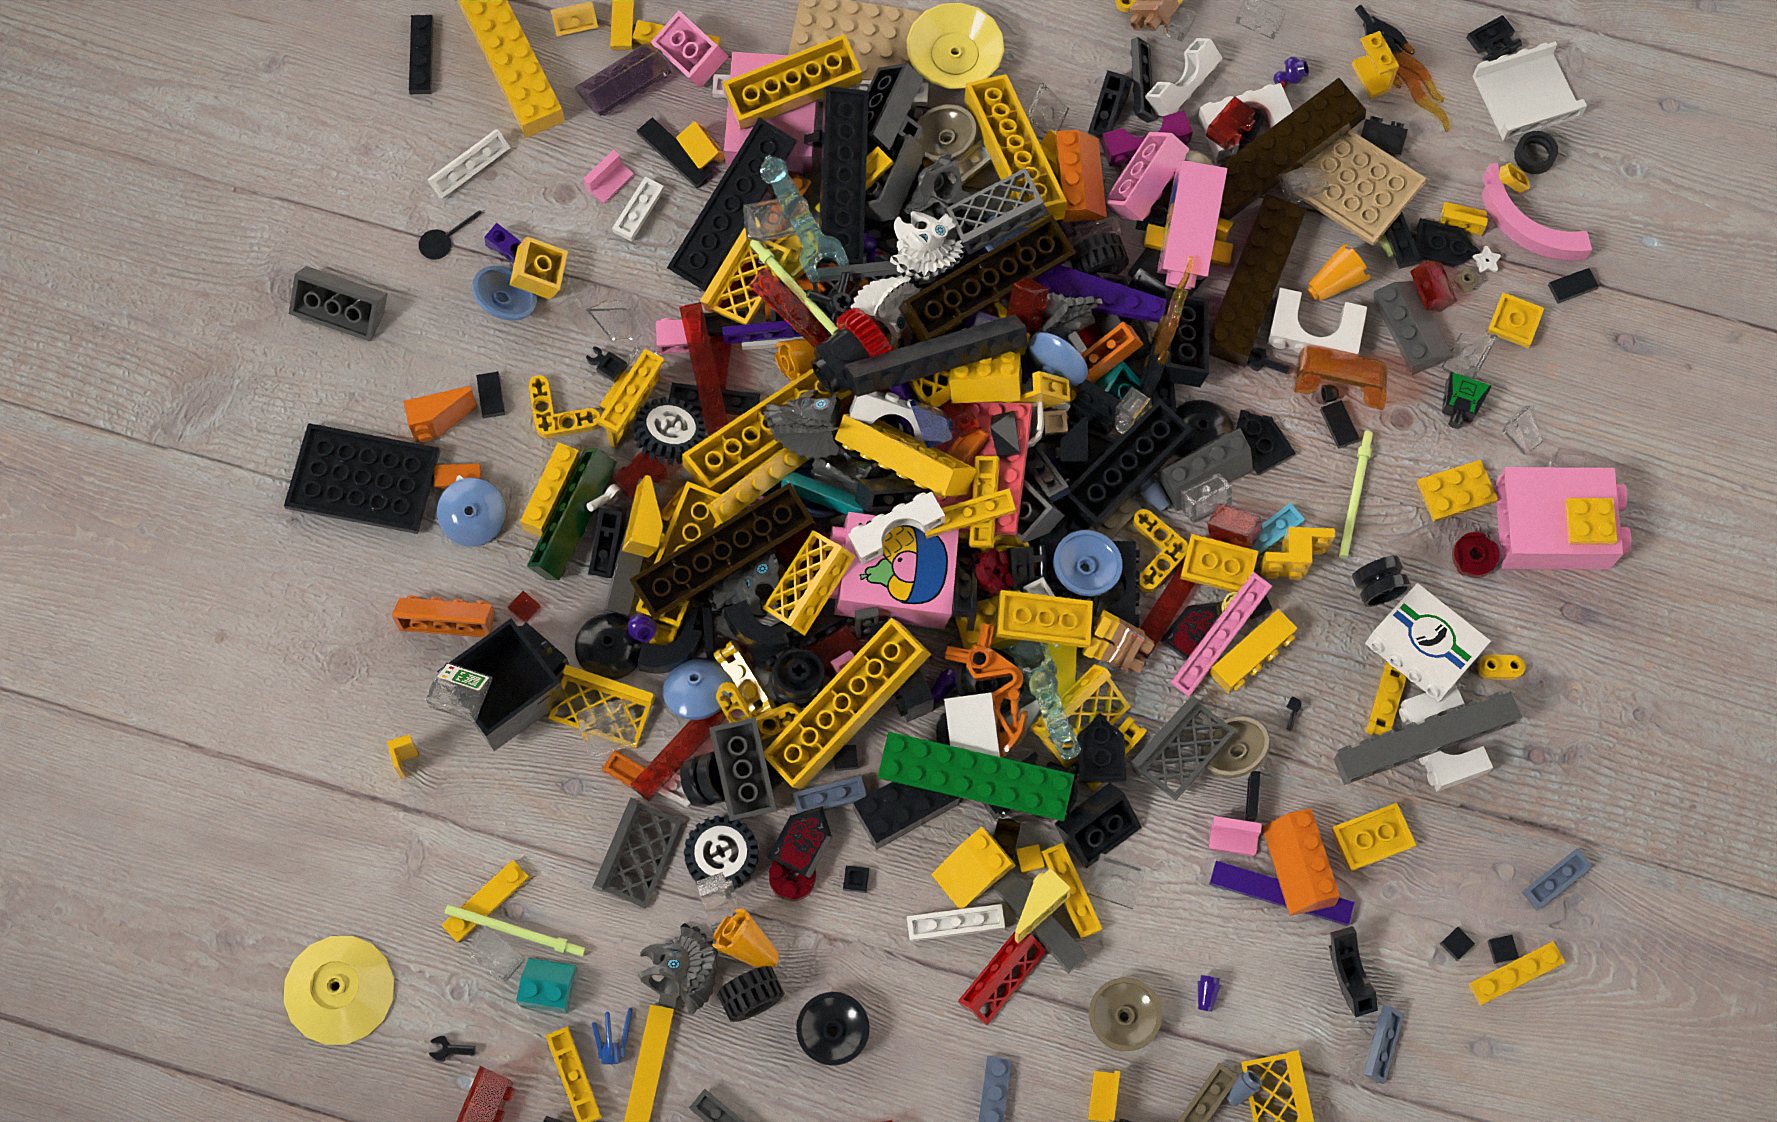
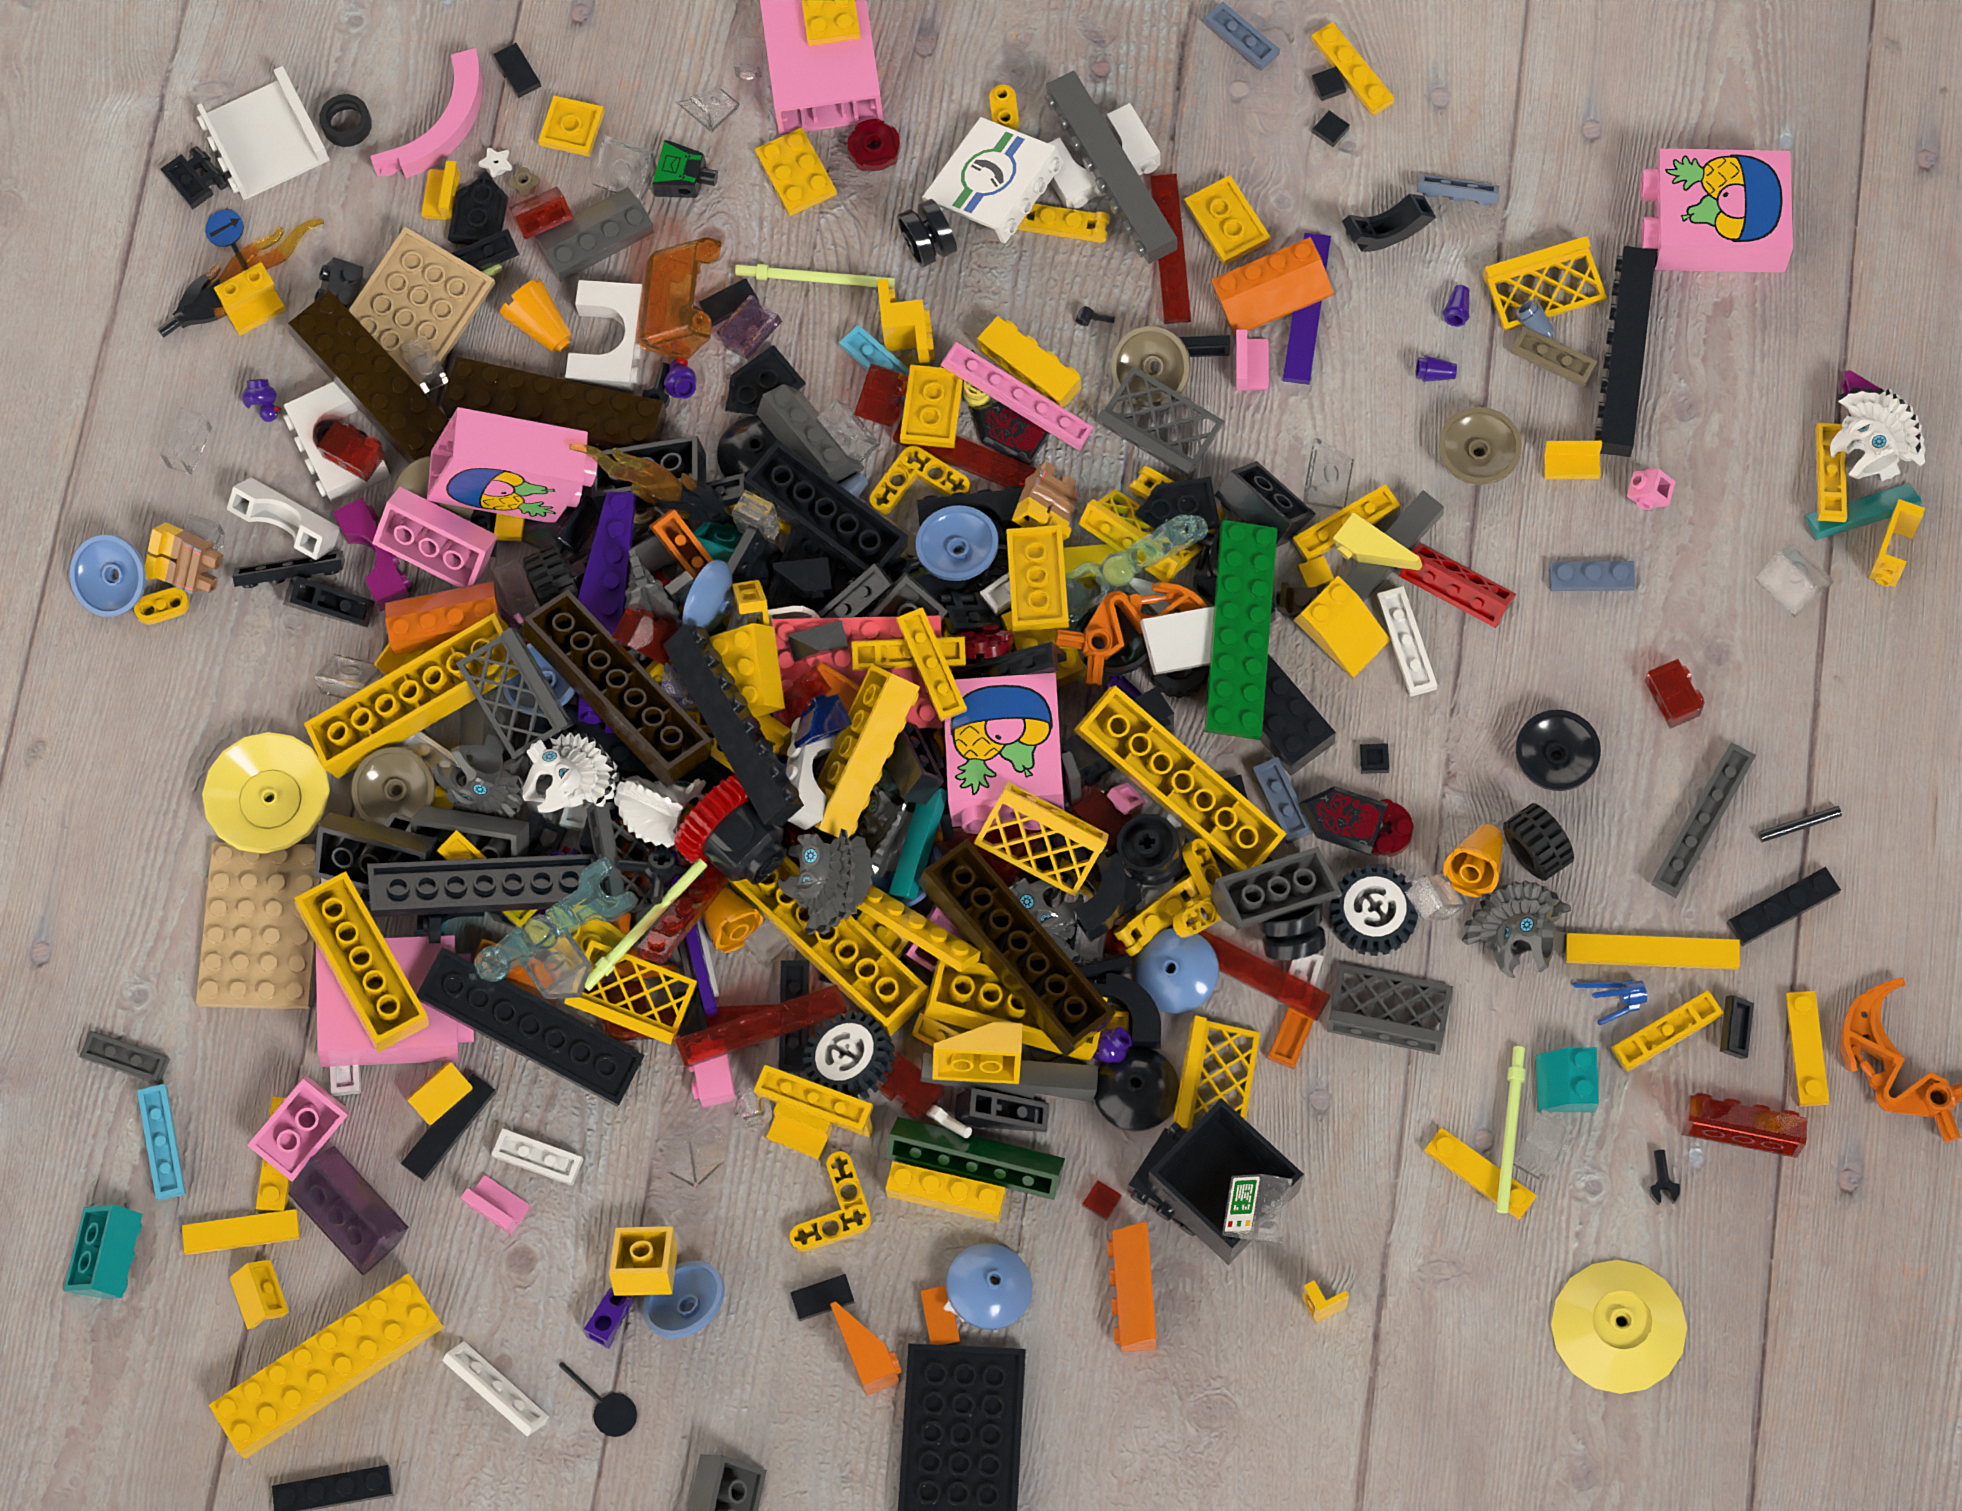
camera: 90 degrees left, 0 degrees up
(606, 728) = (1242, 1068): clear slope -> none
(609, 365) = (763, 1153): black plate -> none
(921, 513) = (986, 765): white arch -> none
(1055, 422) = (778, 598): tan plate -> none
(1266, 1023) = (1457, 308): none -> dark purple cone
(1270, 377) = (680, 380): none -> dark purple animal
(1312, 434) = (748, 327): none -> clear purple bracket
(1370, 788) = (1172, 266): none -> clear red plate
(1446, 60) = (225, 229): none -> blue piece
(1514, 178) = (387, 137): yellow plate -> none

